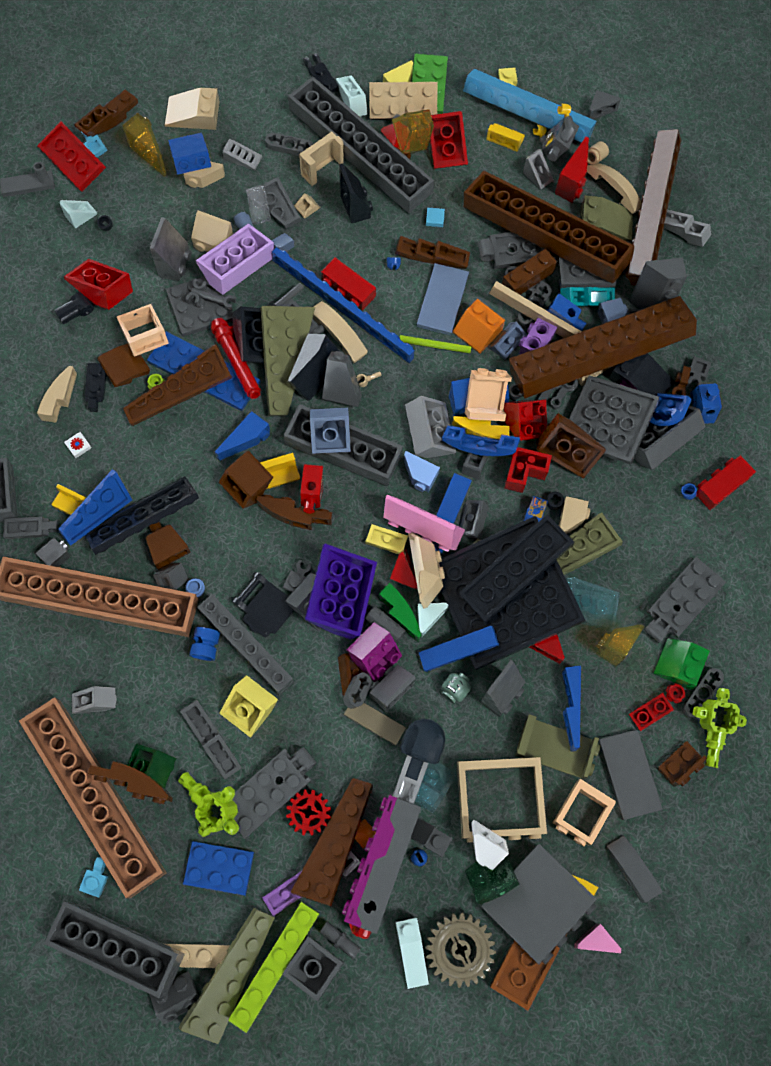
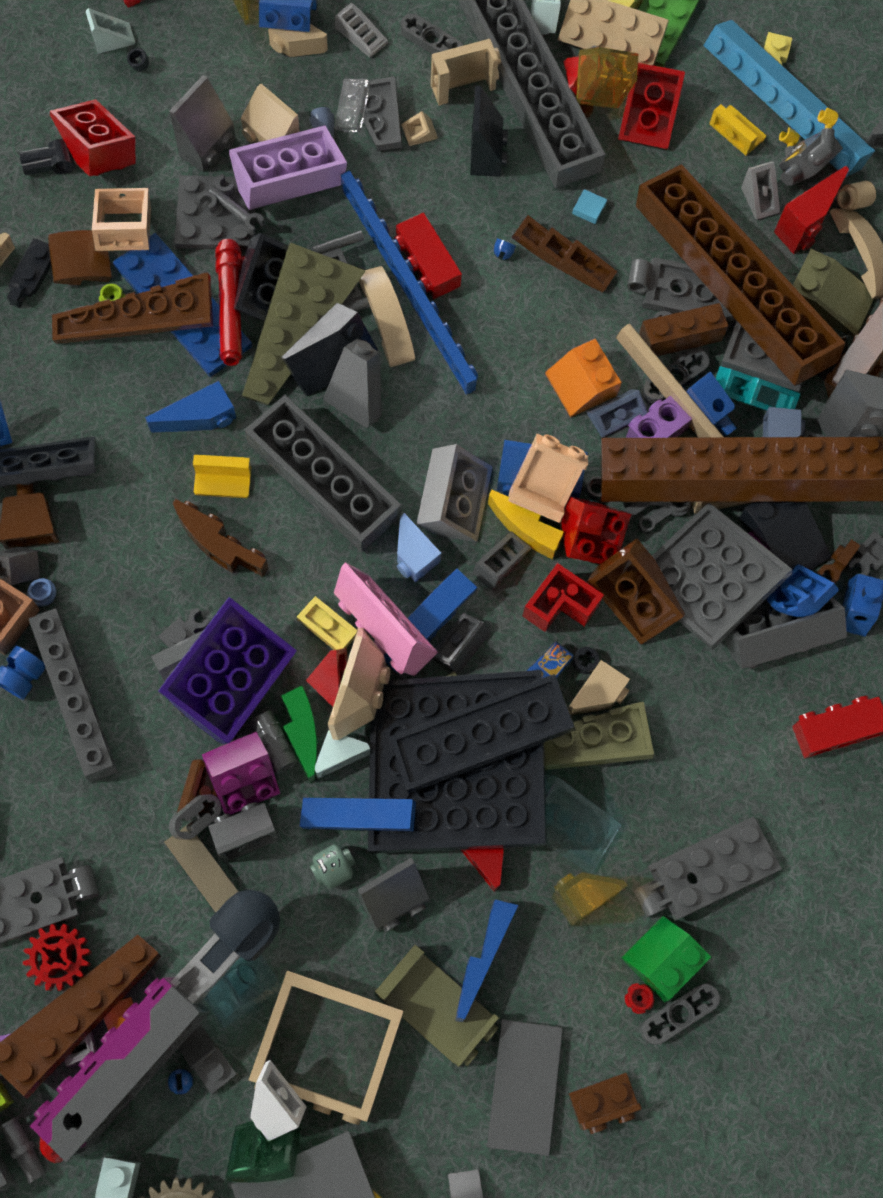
camera: 20 degrees right, 0 degrees up
(246, 480) = (169, 471): reddish brown slope -> none
(248, 706) = (41, 779): light yellow slope -> none
(268, 608) = (124, 659): black piece -> none
(283, 242) = (364, 169): sand blue slope -> none
(311, 487) = (252, 515): red torso -> none
(330, 430) = (307, 445): sand blue slope -> none
(367, 378) = (398, 394): tan hand -> none
(435, 344) = (513, 381): lime bar -> none
(442, 299) = (550, 323): sand blue tile -> none
(480, 445) = (509, 542): blue slope -> none
(595, 795) = (461, 1096): light nougat window -> none
(651, 712) = (594, 1010): red slope -> none
(689, 488) = (786, 716): blue hinge -> none
(717, 735) = (671, 1081): lime piece -> none

